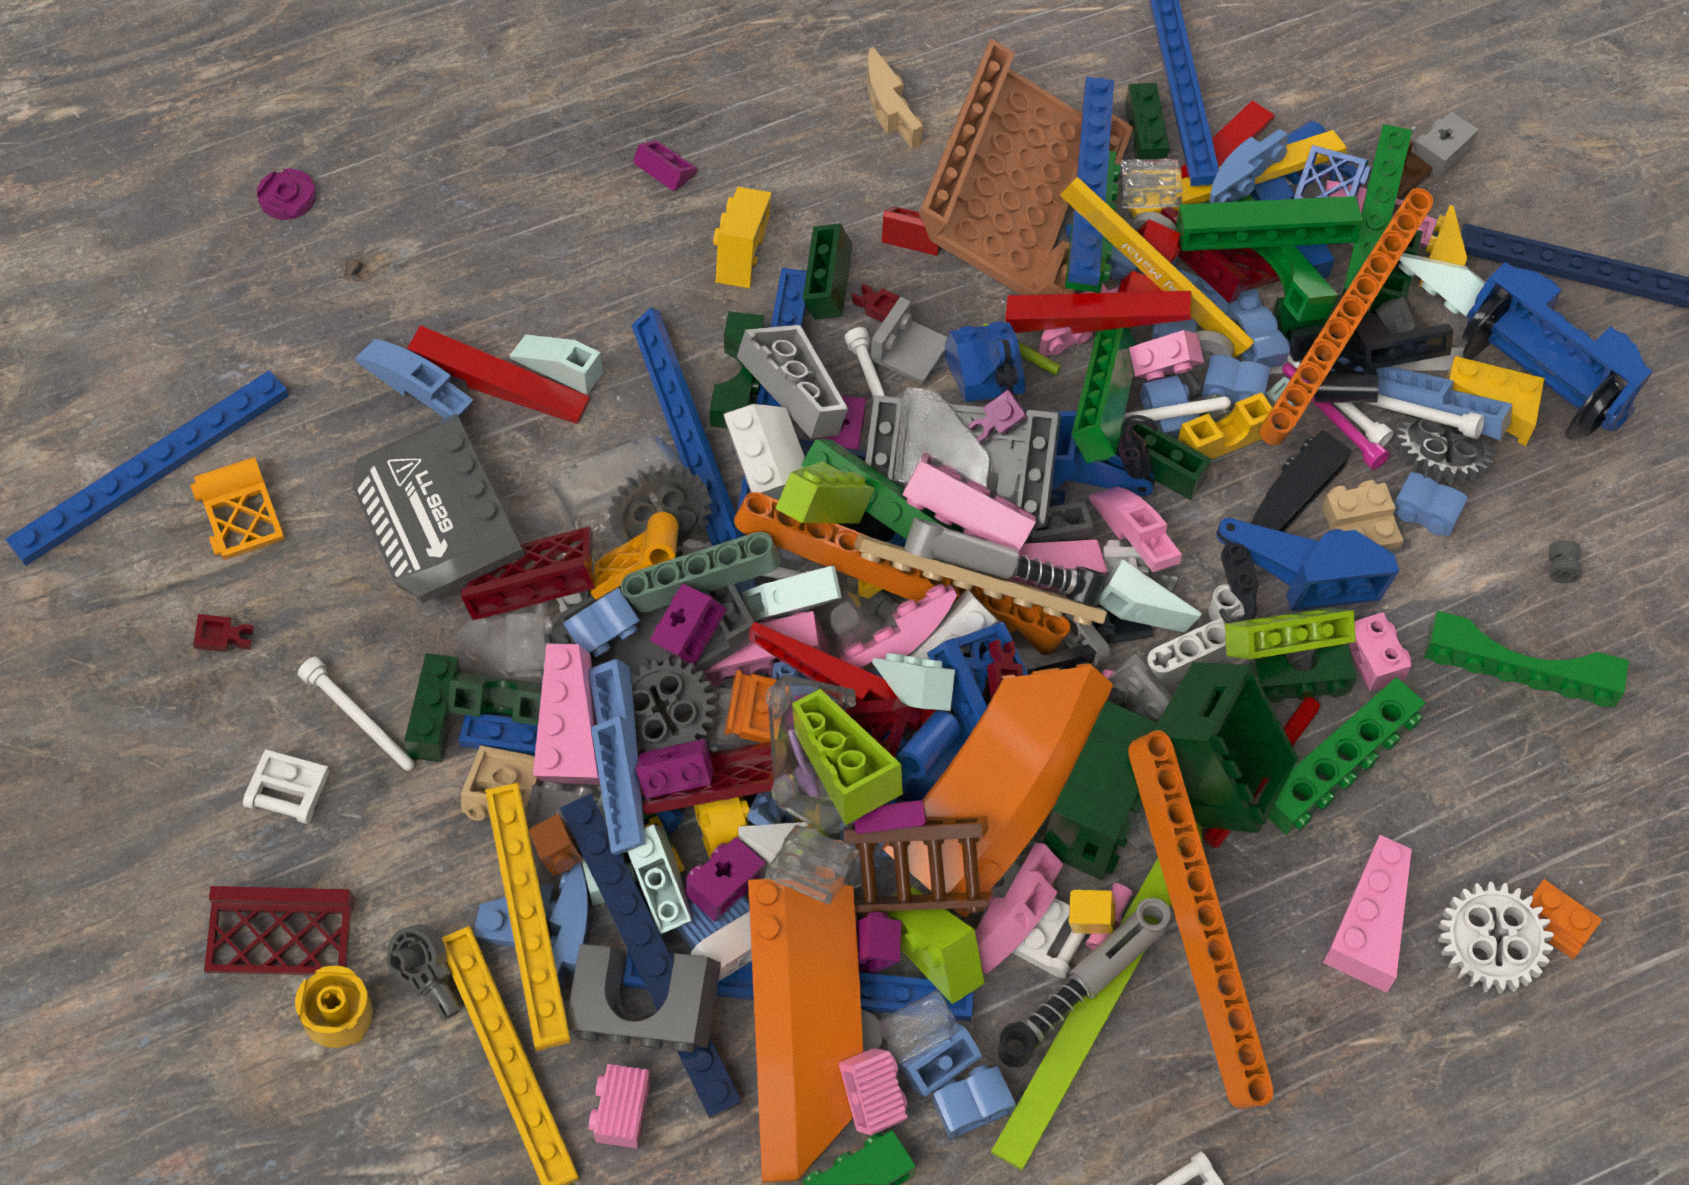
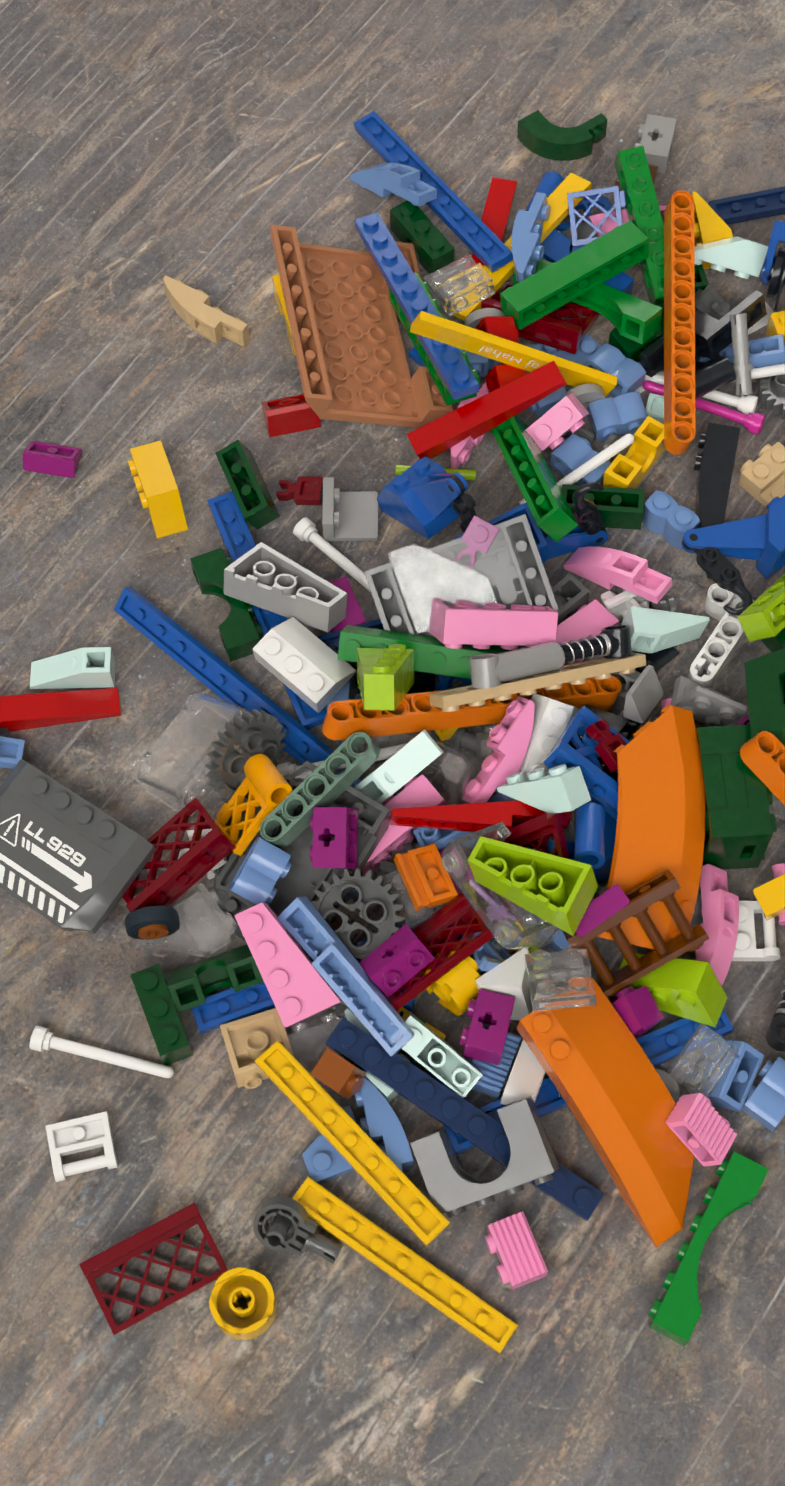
camera: 25 degrees left, 5 degrees up
(474, 616) = (152, 922): none -> black wheel
(1079, 647) = (643, 696): none -> light grey slope
(1152, 60) = (397, 179): none -> medium blue slope
(1221, 497) = (668, 519): none -> medium blue brick
(1346, 100) = (559, 142): none -> dark green arch
(1397, 375) = (741, 354): none -> light grey pin

